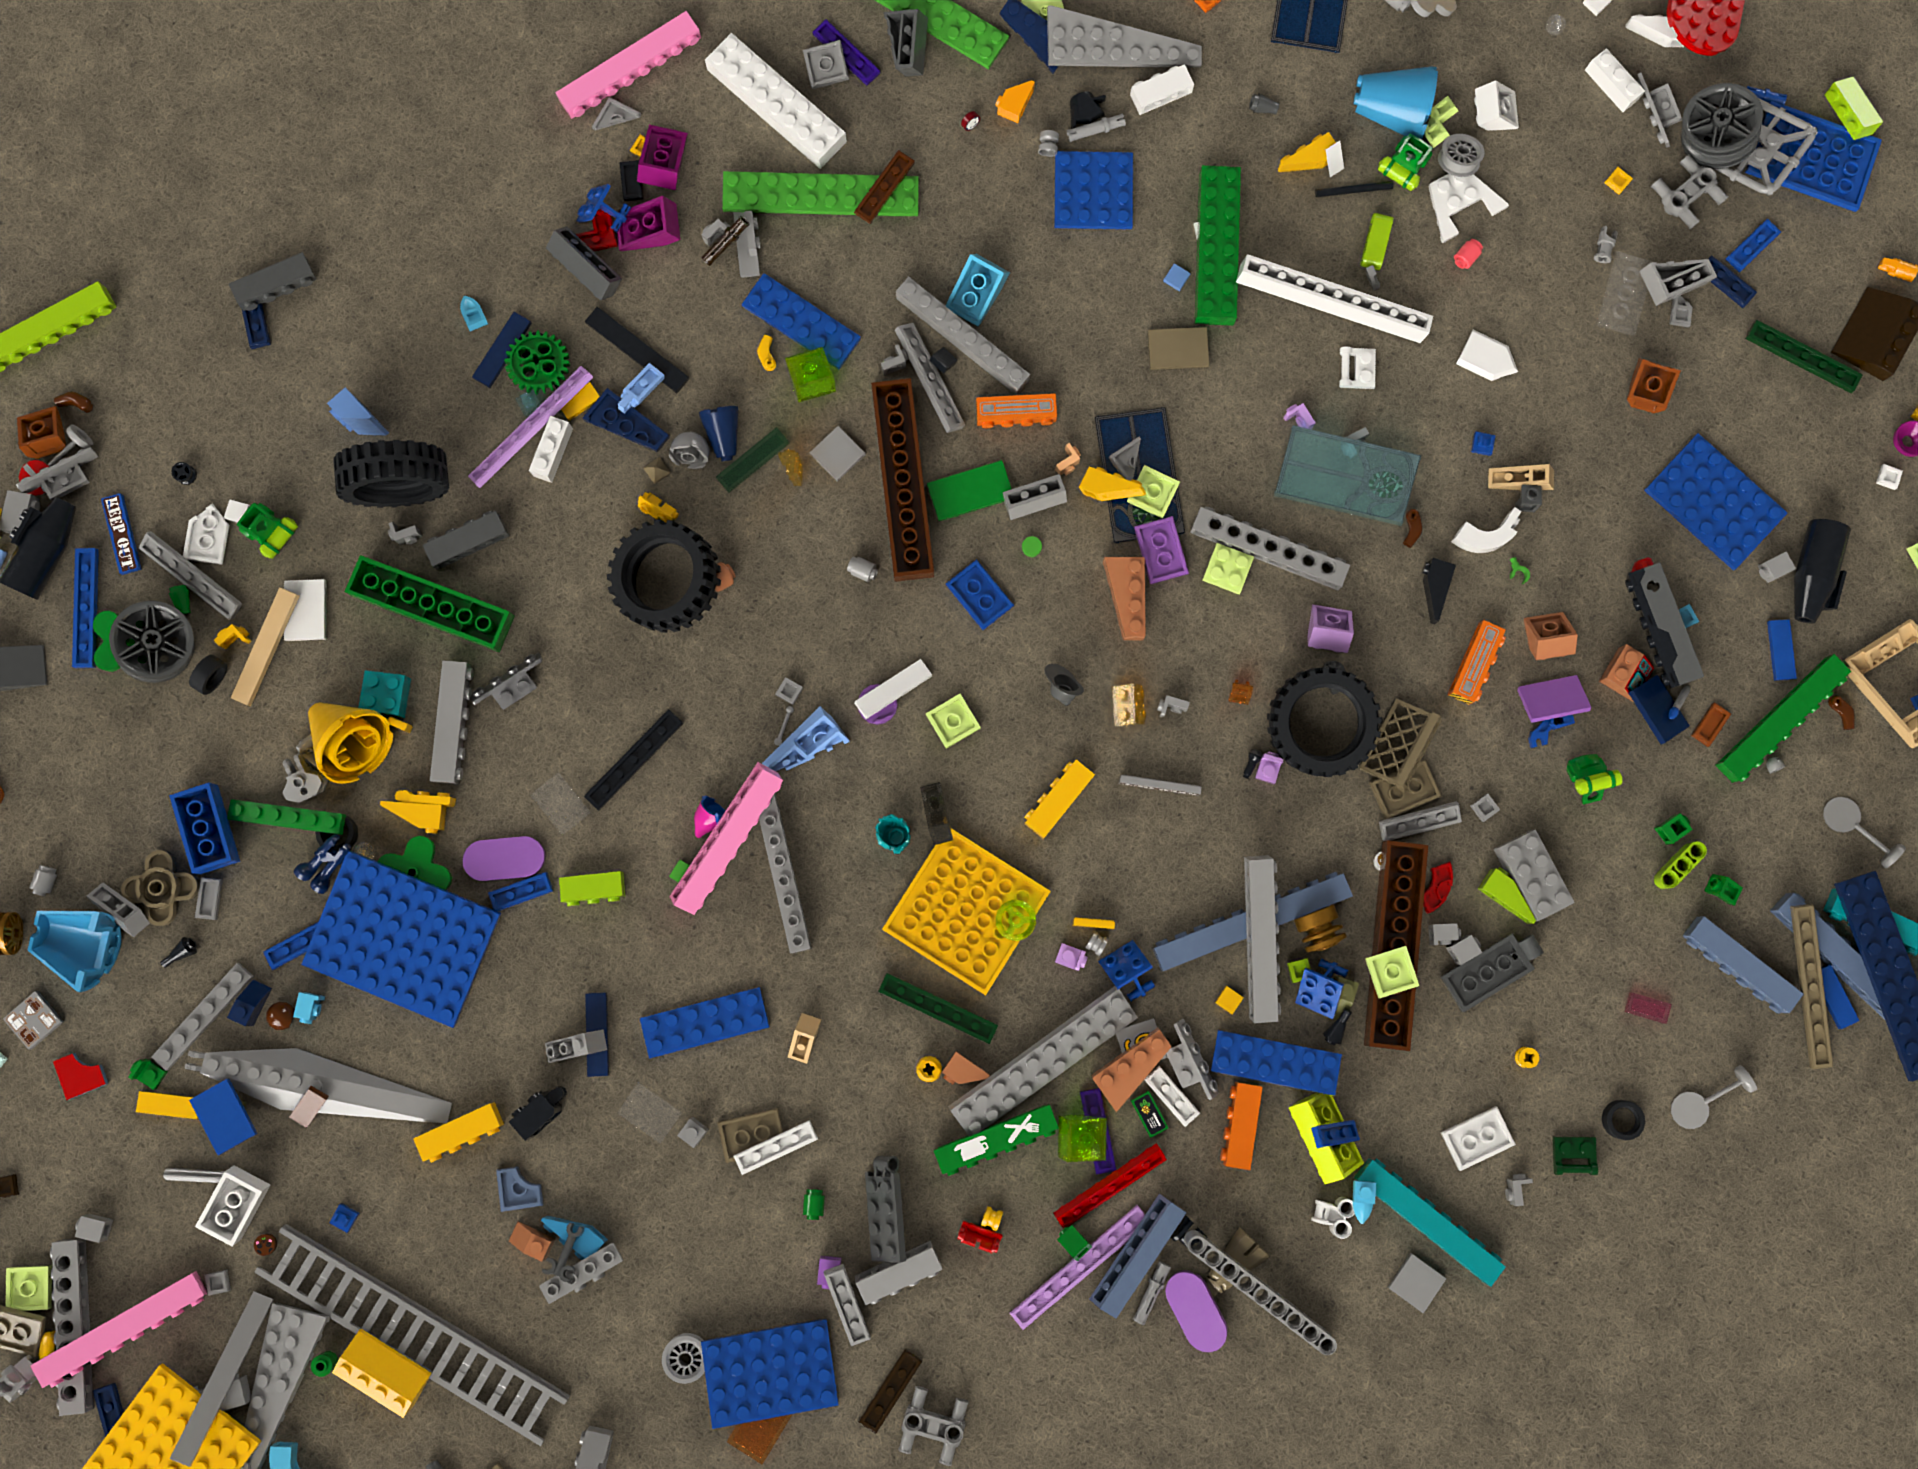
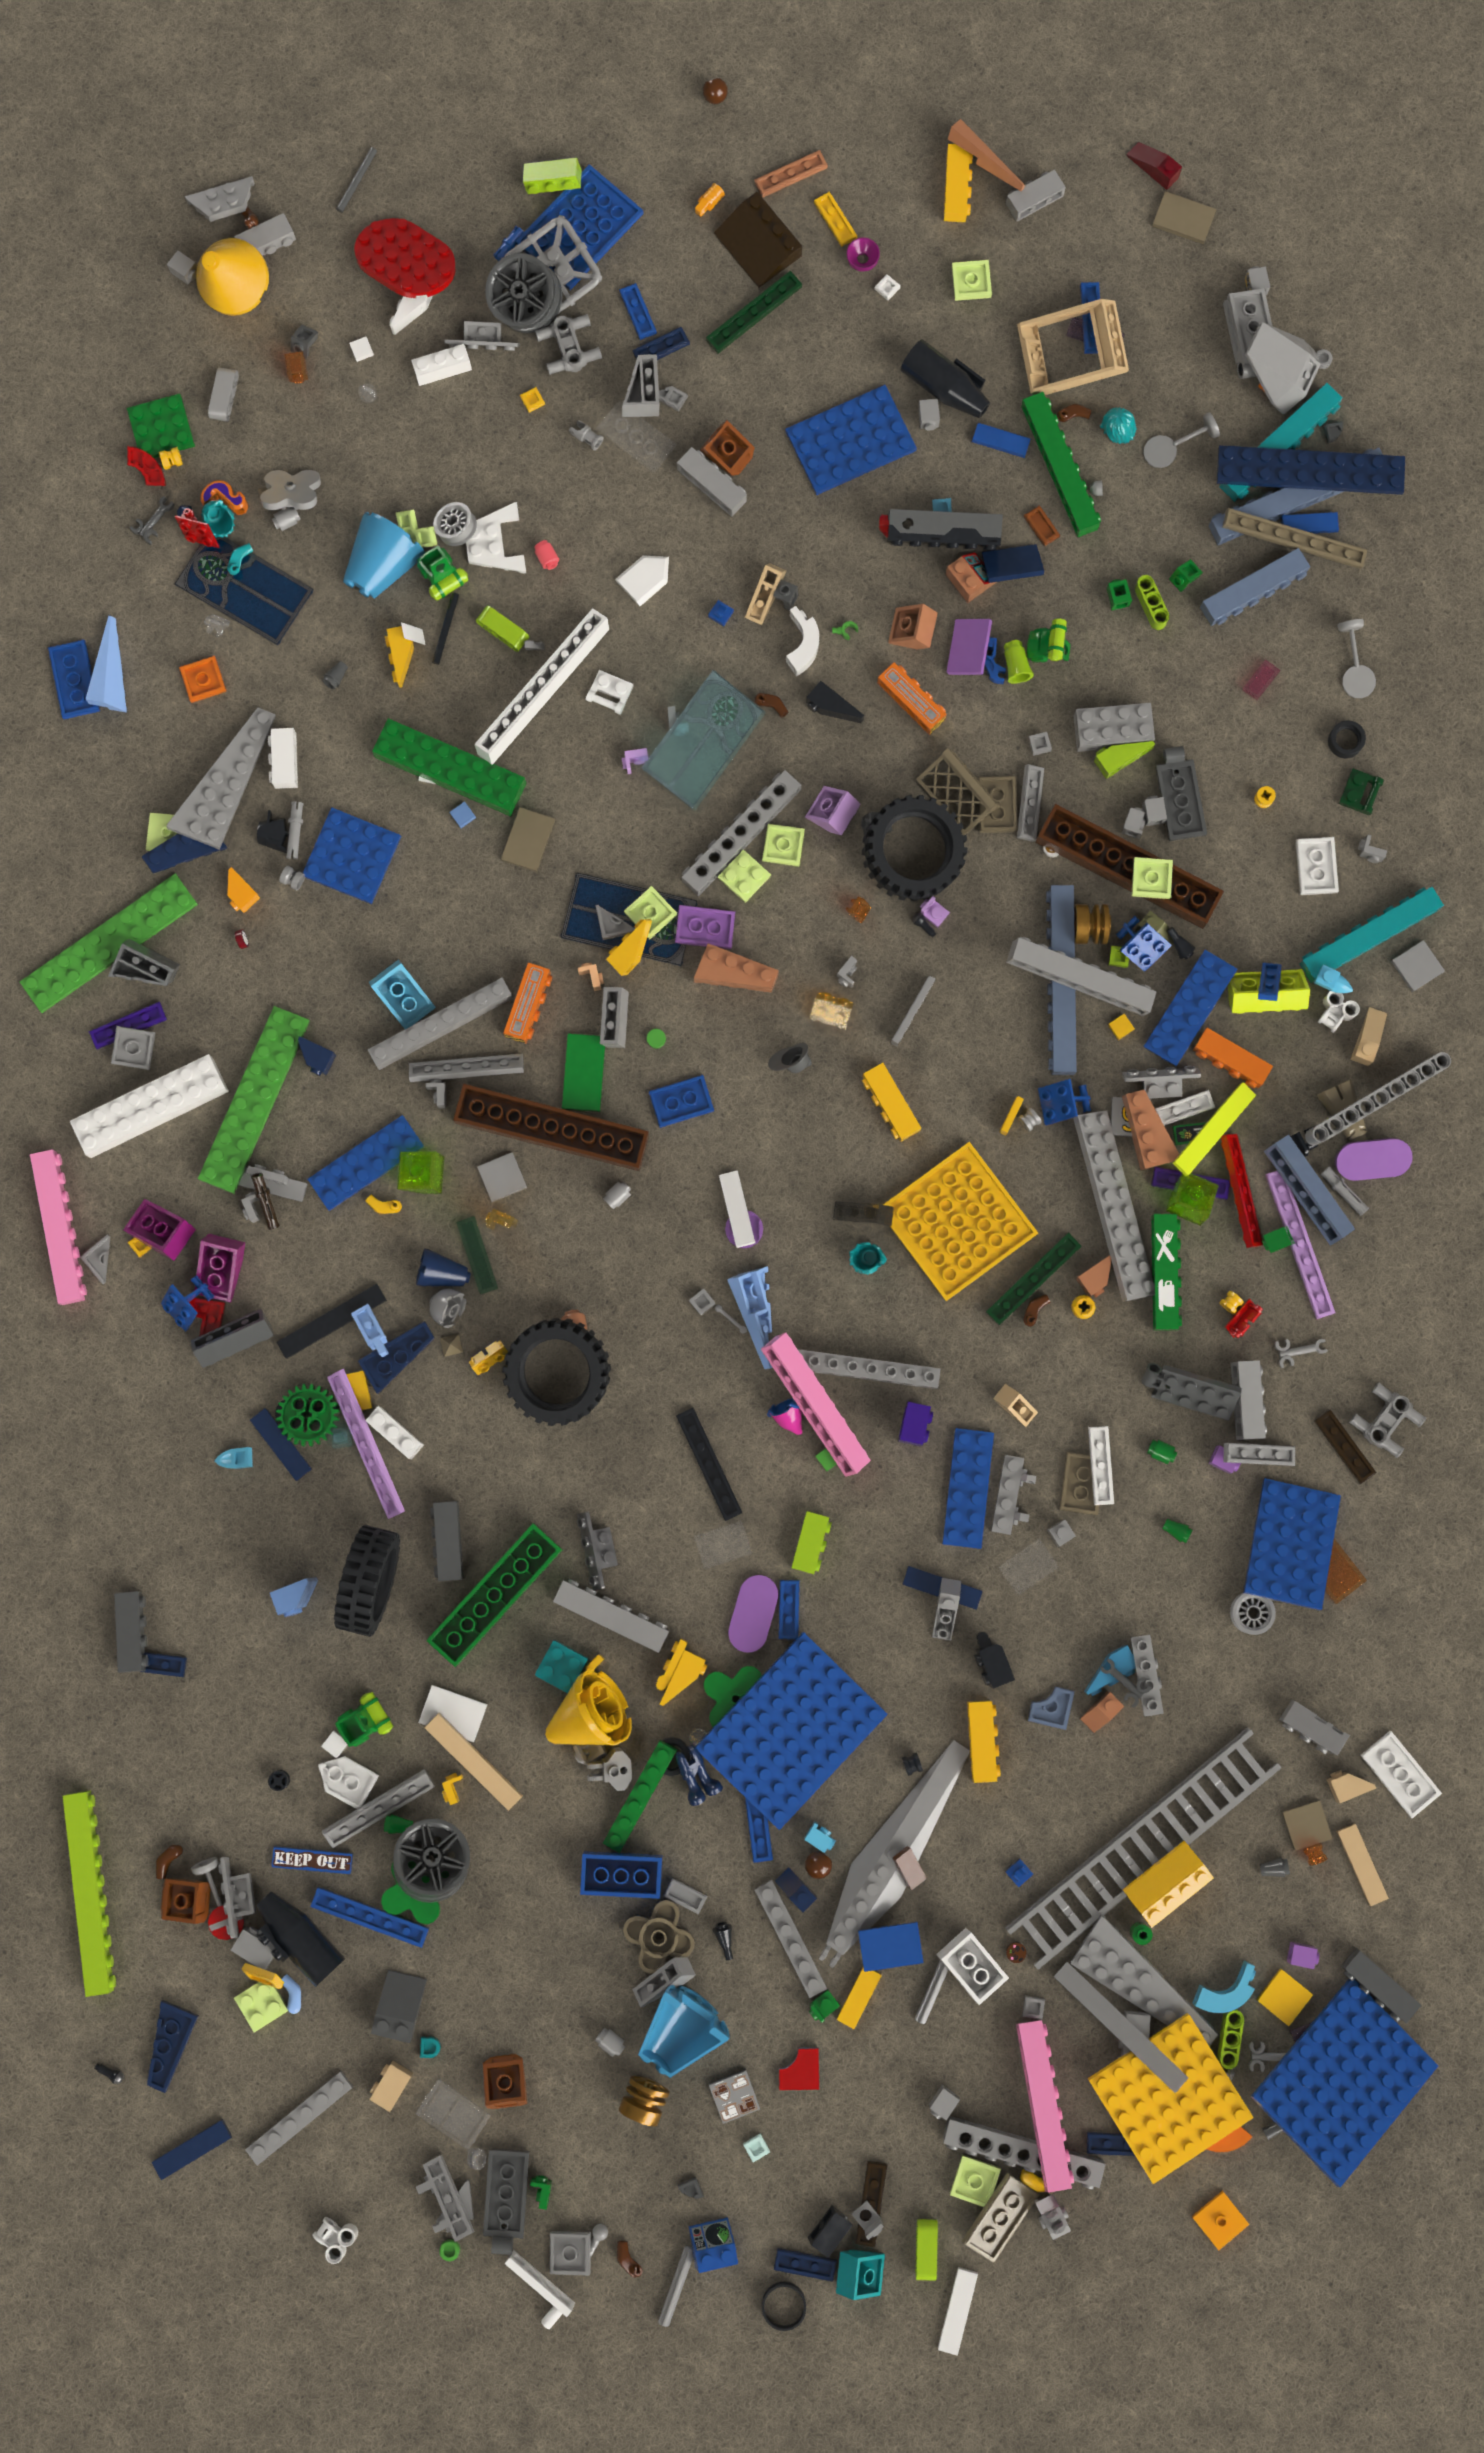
camera: 65 degrees left, 0 degrees up
(208, 674) = (480, 1821): black tyre -> none
(403, 536) = (423, 1593): light grey bracket -> none
(412, 1070) = (912, 1764): none -> black wheel
(631, 188) = (164, 1266): black tile -> none
(729, 1062) = (1006, 1512): none -> light grey hinge
(740, 1250) = (1178, 1530): none -> green cone
(745, 944) = (915, 1423): none -> dark purple brick
(884, 187) = (273, 1039): reddish brown tile -> none
(884, 234) = (316, 1057): none -> dark blue slope
(907, 1019) = (1033, 1308): none -> reddish brown arm
(943, 360) = (455, 1049): black tile -> none
(953, 721) = (786, 1168): yellowish green plate -> none
(962, 1293) = (1286, 1353): none -> light grey bar
(1028, 919) = (992, 1192): clear neon green piece -> none
(1071, 957) = (1033, 1146): lavender bracket -> none
(1161, 1134) = (1214, 1129): none -> neon yellow tile
(1275, 594) = (783, 845): none -> yellowish green tile
(1322, 1259) = (1369, 1037): none -> tan slope
(1439, 887) = (1092, 810): red tile -> none
(1496, 107) = (423, 475): white slope -> none
(1558, 753) = (1017, 662): none -> lime plant
(1612, 382) = (711, 481): none -> light grey brick
(1674, 711) = (1013, 544): light grey piece -> none
(1850, 762) = (1119, 425): none -> teal hair

